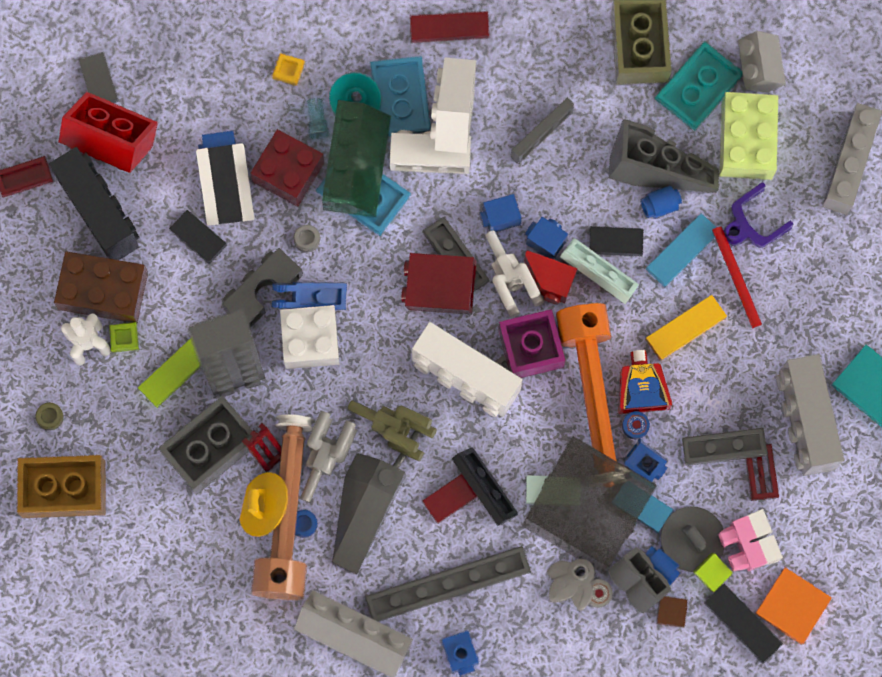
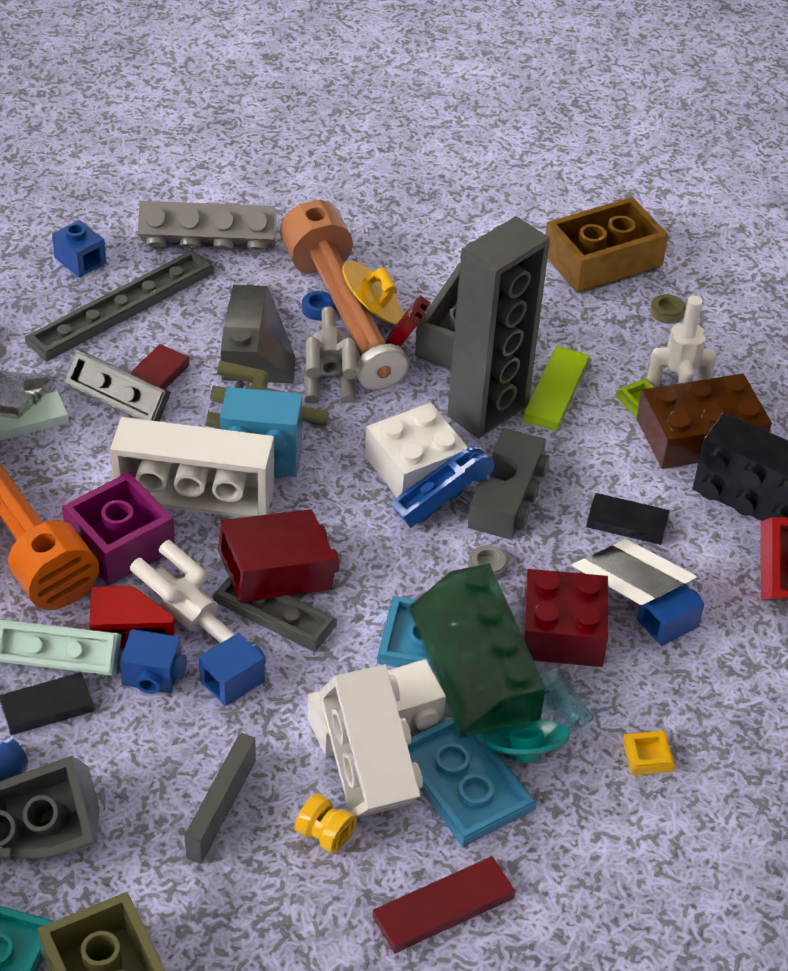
camera: 155 degrees right, 30 degrees down
(408, 383) = (267, 414): none -> dark azure brick
(491, 91) = (325, 823): none -> yellow wheel

